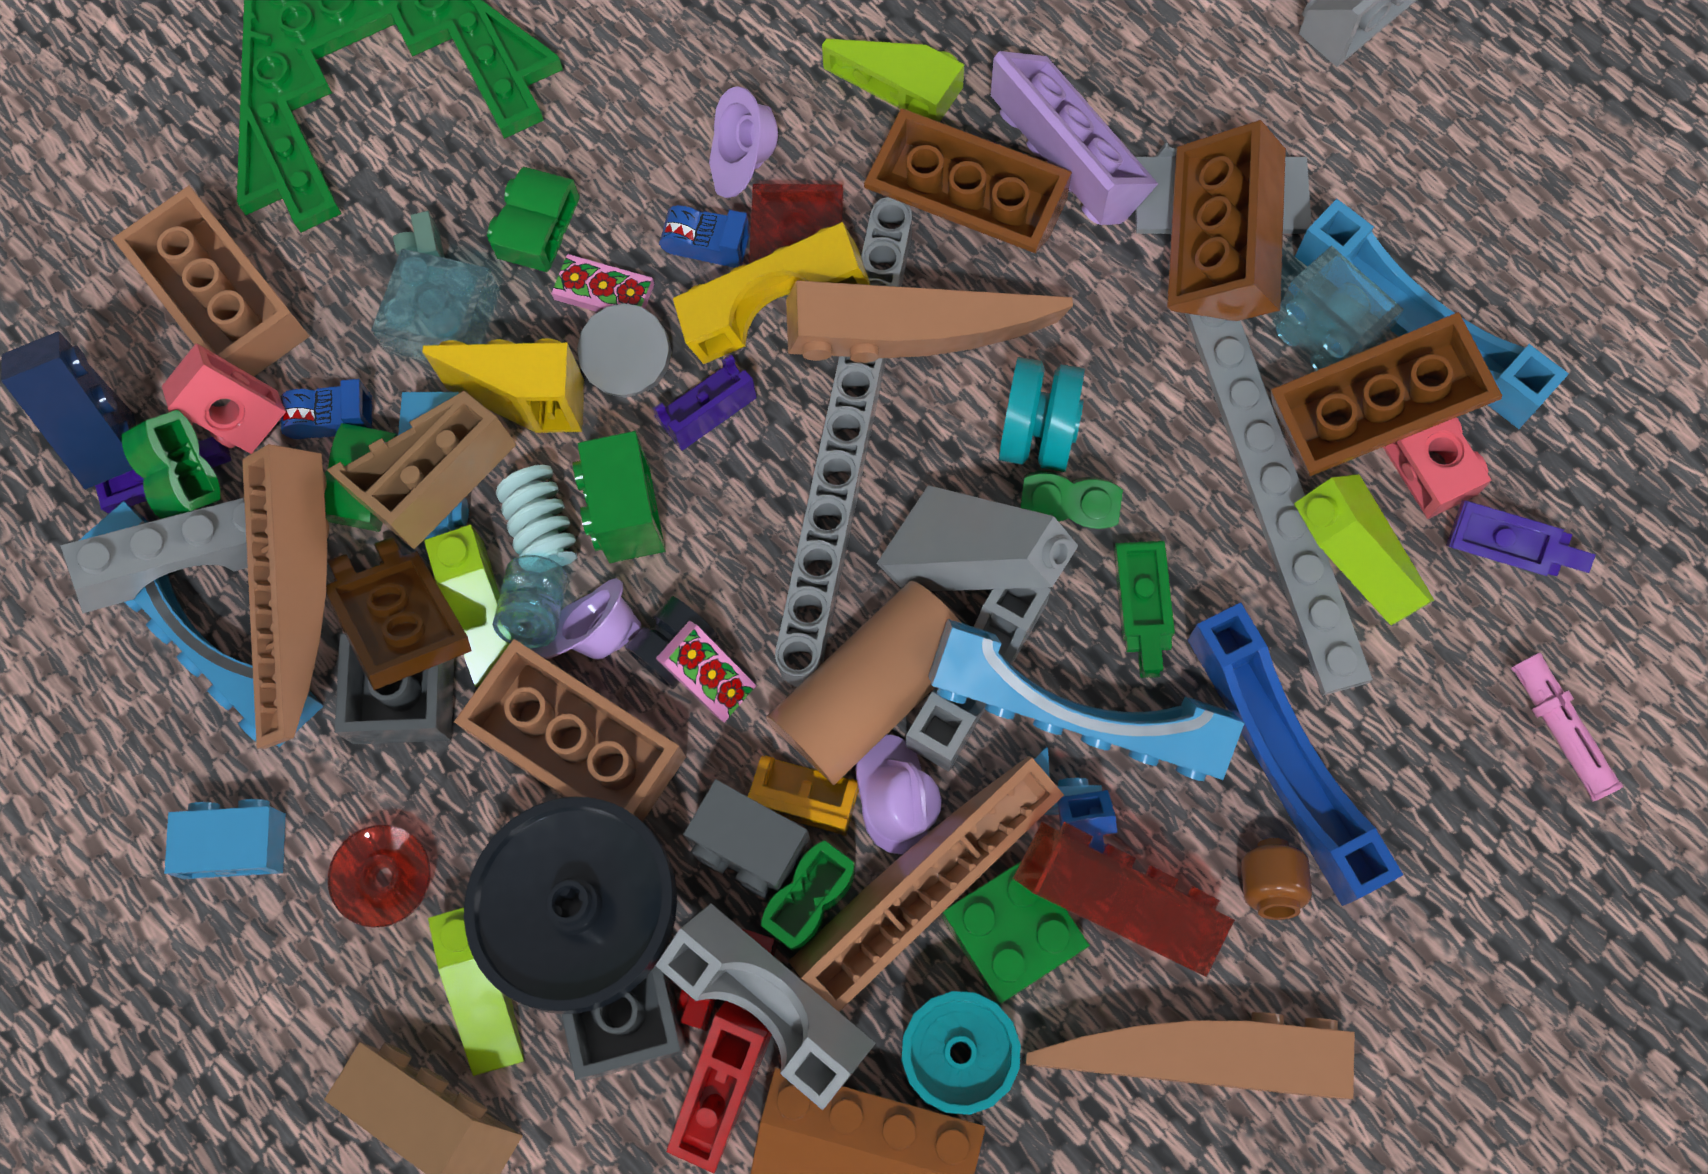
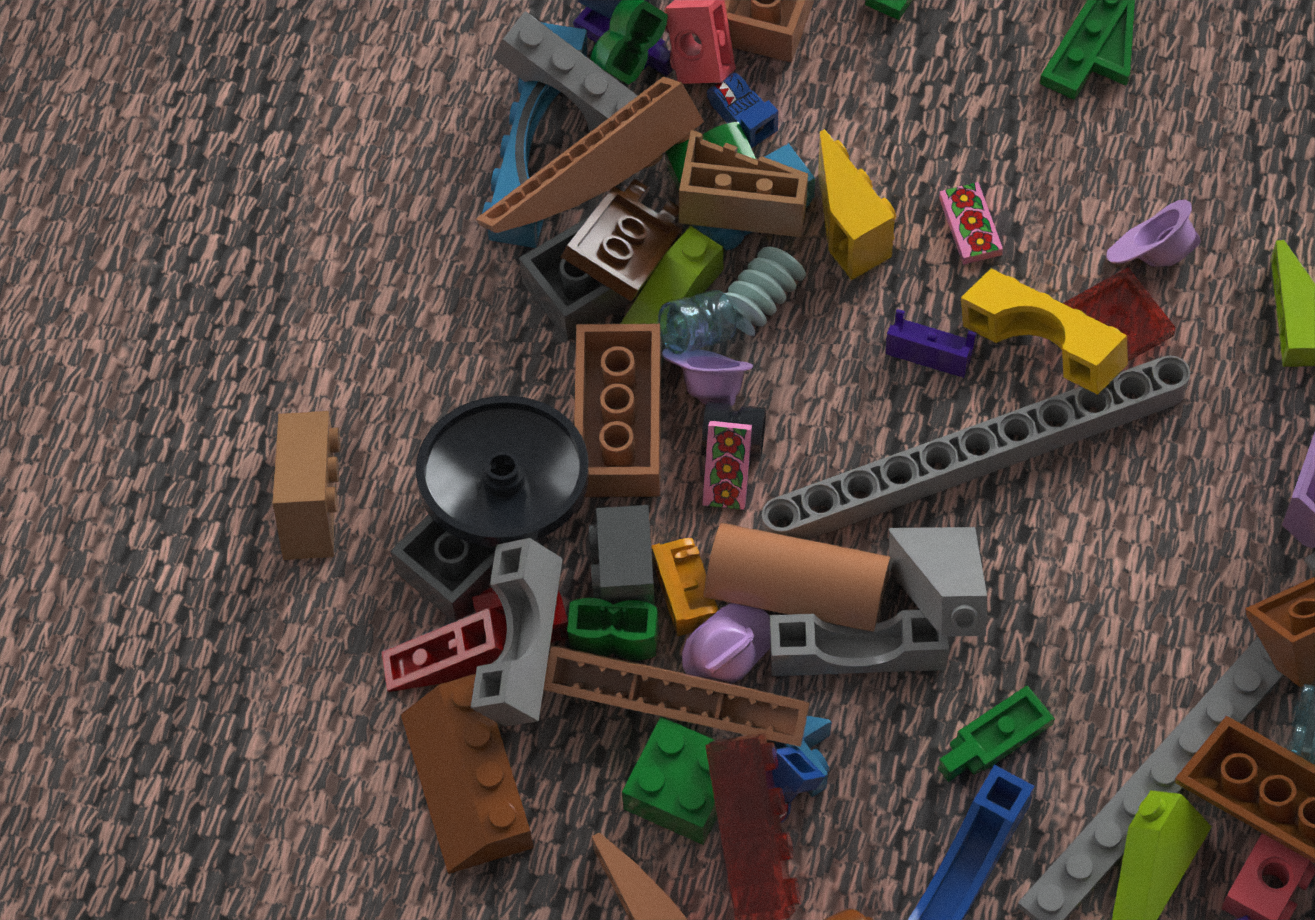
camera: 55 degrees right, 10 degrees down
(225, 841) = (404, 248): dark azure brick -> none
(355, 870) = (439, 339): clear red dish -> none
(424, 239) = (913, 85): sand green tile -> none
(433, 303) = (871, 123): clear light blue brick -> none
(479, 1009) = (394, 478): lime slope -> none
(533, 218) = (988, 142): green brick -> none
(618, 497) = (812, 329): green brick -> none
(624, 350) = (931, 266): light grey tile -> none
(706, 235) = (1063, 262): blue leg -> none
(908, 321) = (1090, 435): nougat slope -> none
(970, 181) = (1239, 411): dark orange slope -> none
(988, 1037) = (565, 766): teal wheel -> none
(1042, 414) = (1085, 567): teal wheel -> none
(1086, 500) = (1036, 631): green brick -> none
(1191, 735) = (850, 629): dark azure arch -> none

